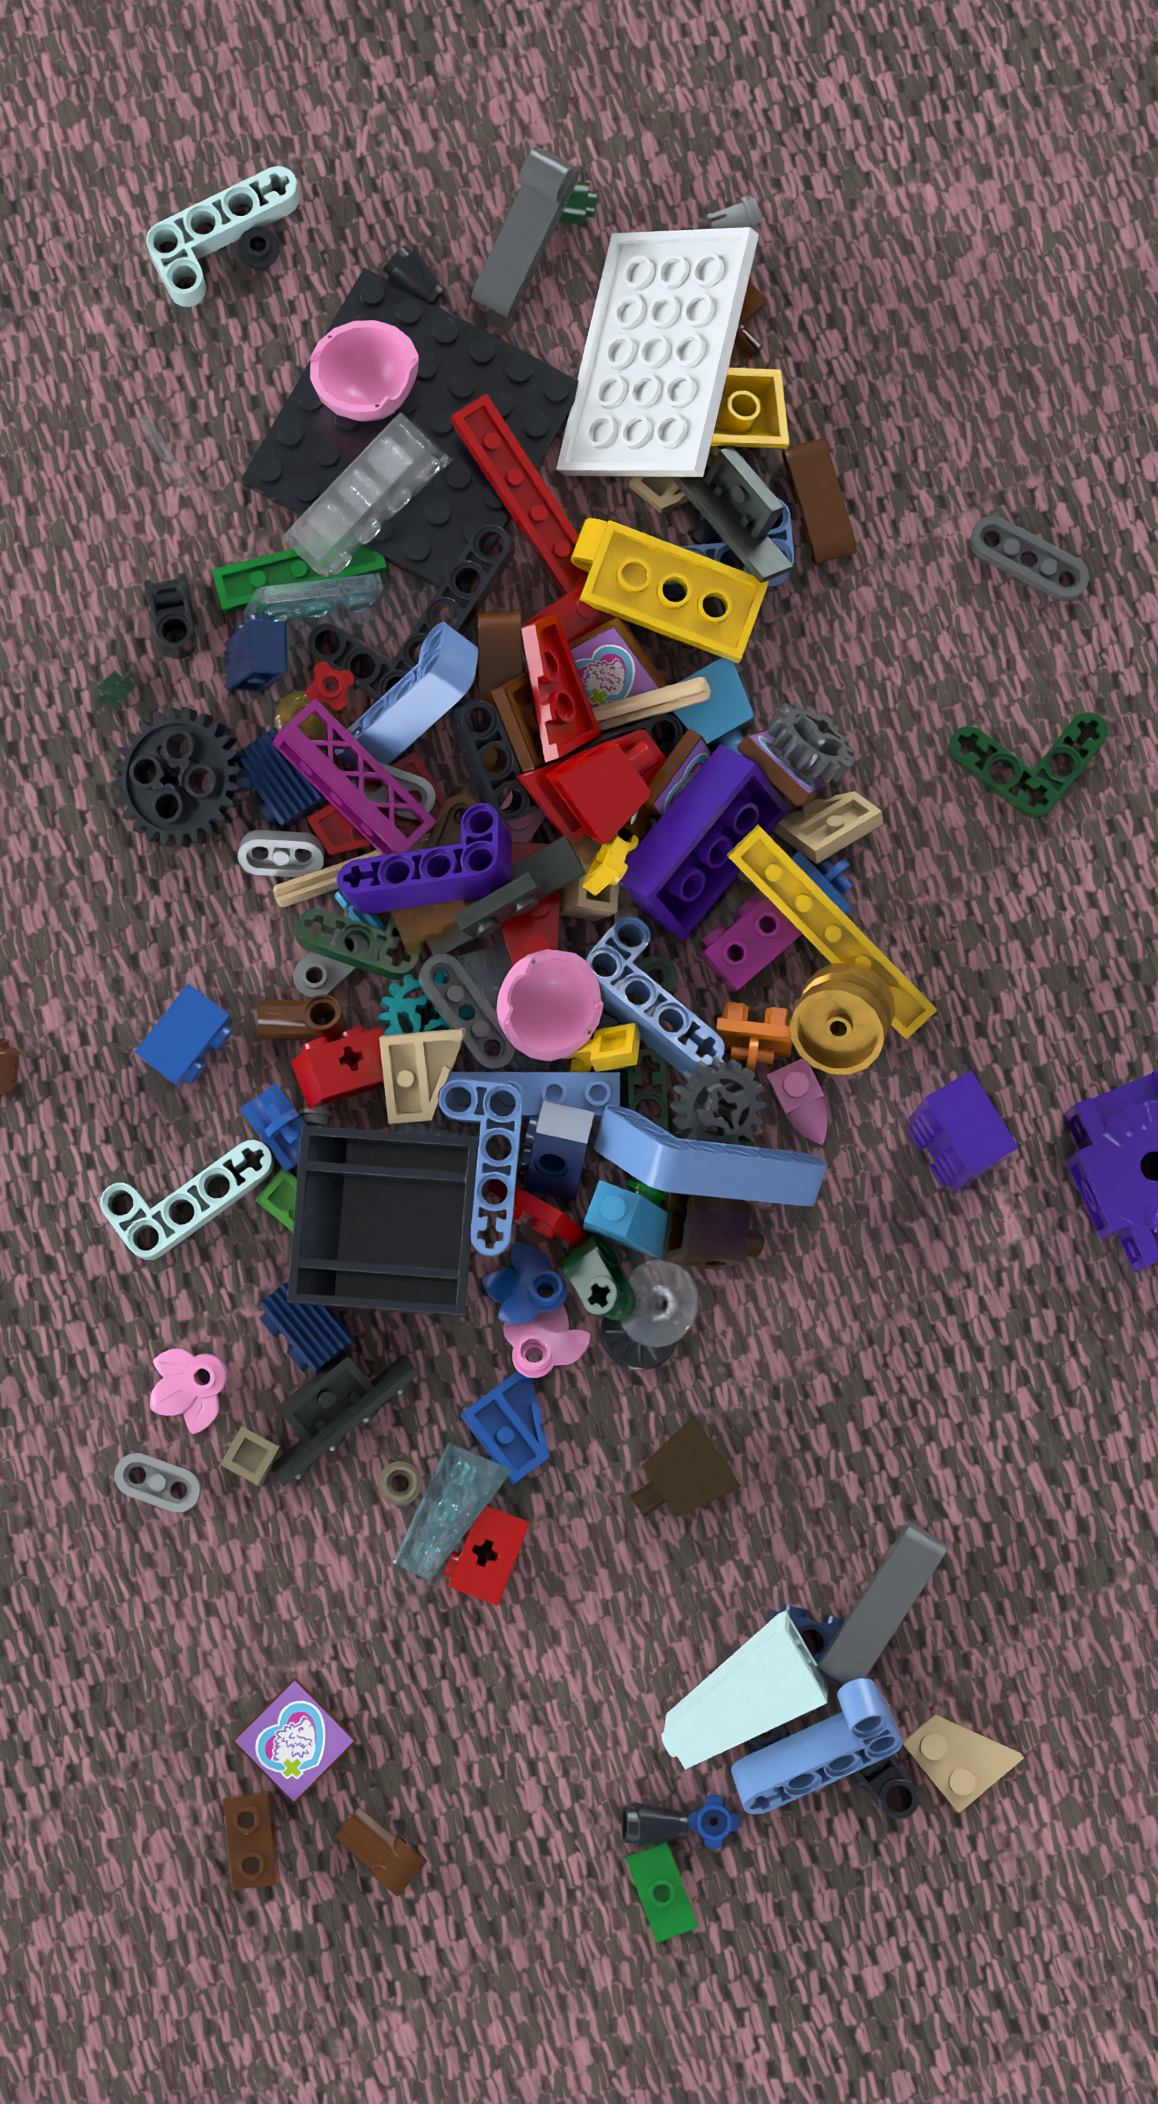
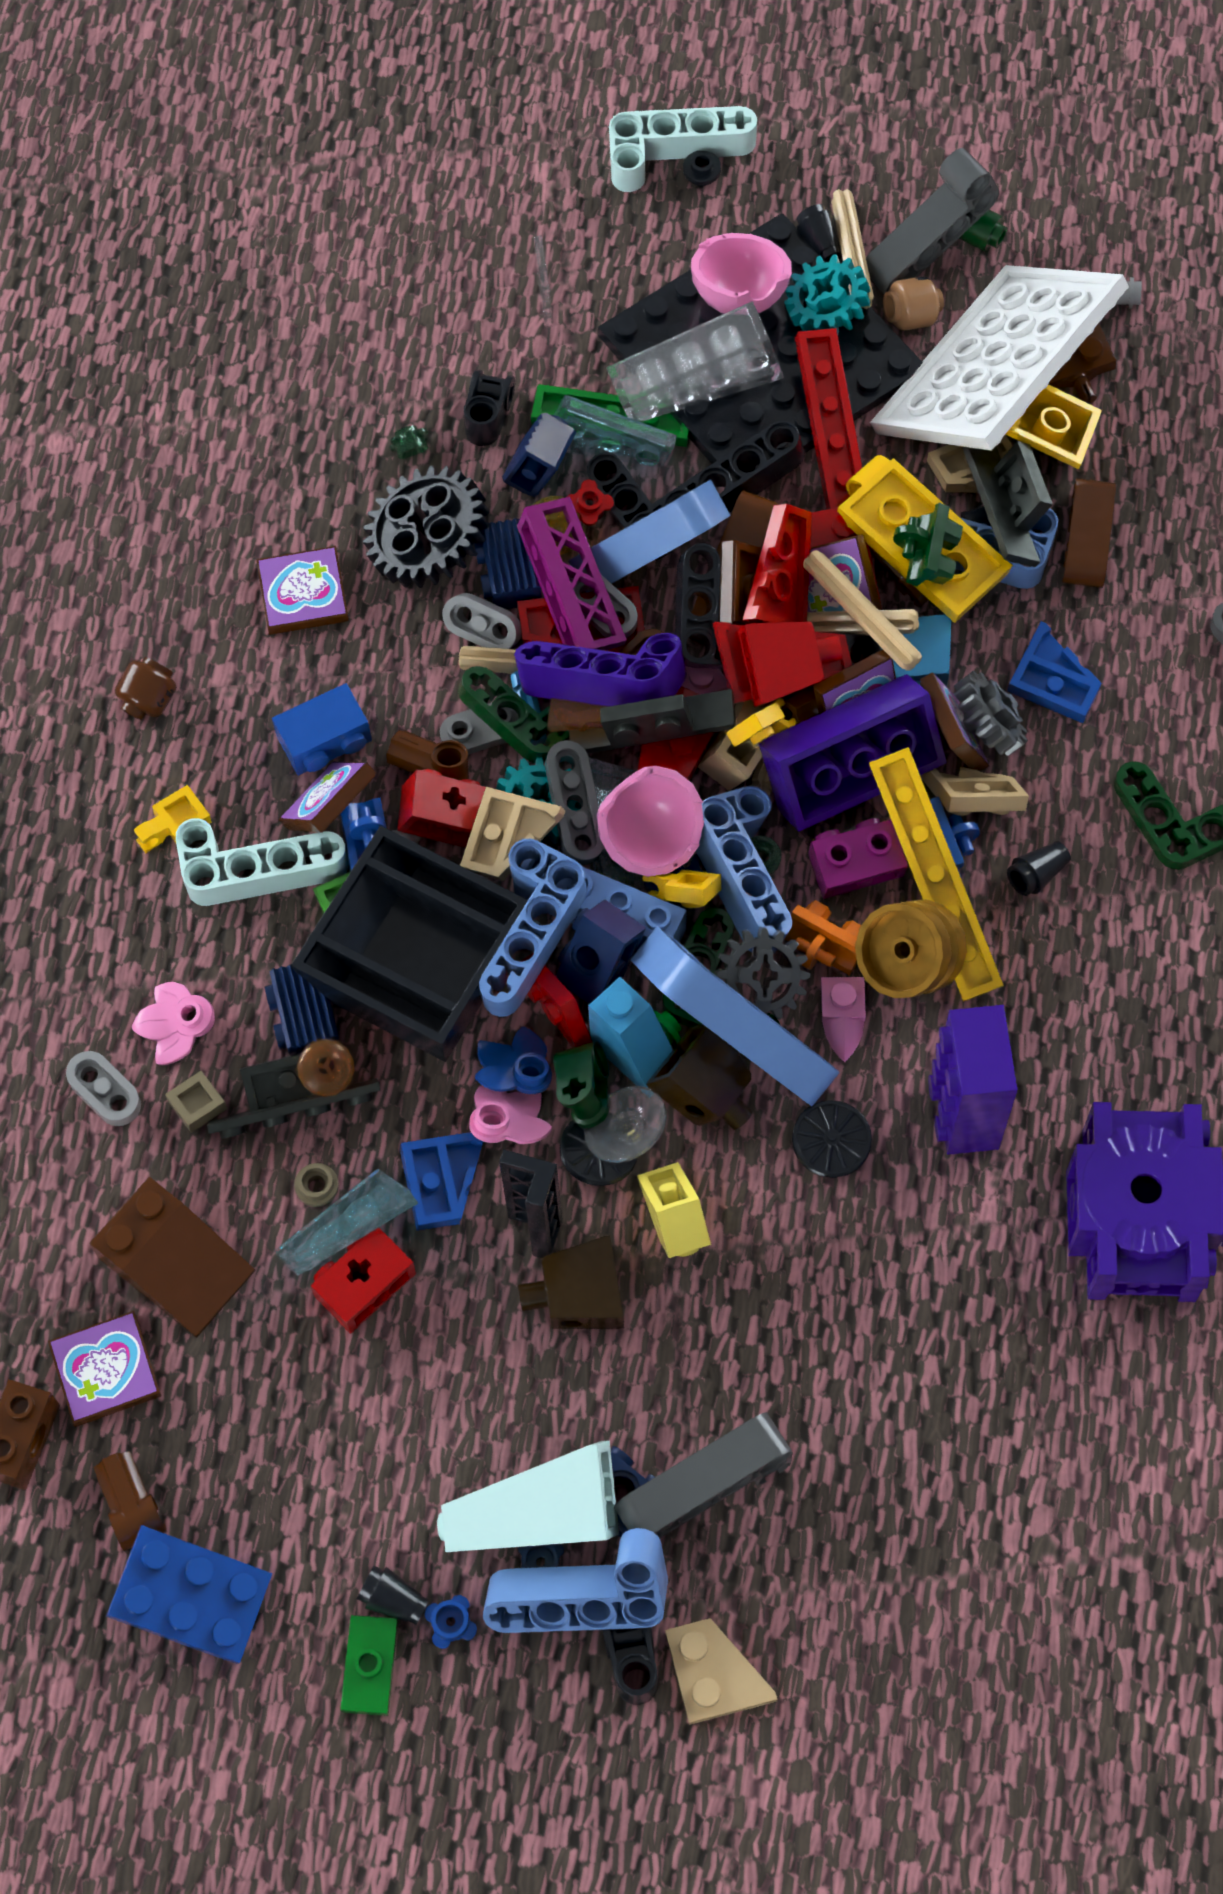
camera: 30 degrees right, 15 degrees down
(86, 1185) = (169, 816): none -> yellow plate
(87, 893) = (302, 590): none -> tile
(225, 1105) = (327, 796): none -> tile
(306, 1614) = (171, 1257): none -> reddish brown slope
(362, 1379) = (325, 1083): none -> clear orange head
(454, 282) = (850, 234): none -> tan axle
(459, 340) = (827, 295): none -> teal gear
(477, 1908) = (189, 1595): none -> blue plate
(541, 318) = (913, 303): none -> medium nougat head
(628, 1419) = (533, 1198): none -> black fence
(651, 698) = (862, 610): none -> tan axle
(683, 606) = (923, 544): none -> dark green hips
(735, 1360) = (674, 1210): none -> light yellow slope
(845, 1226) = (831, 1138): none -> black wheel
(850, 670) = (1054, 677): none -> blue wing
(917, 876) = (1037, 868): none -> black cone

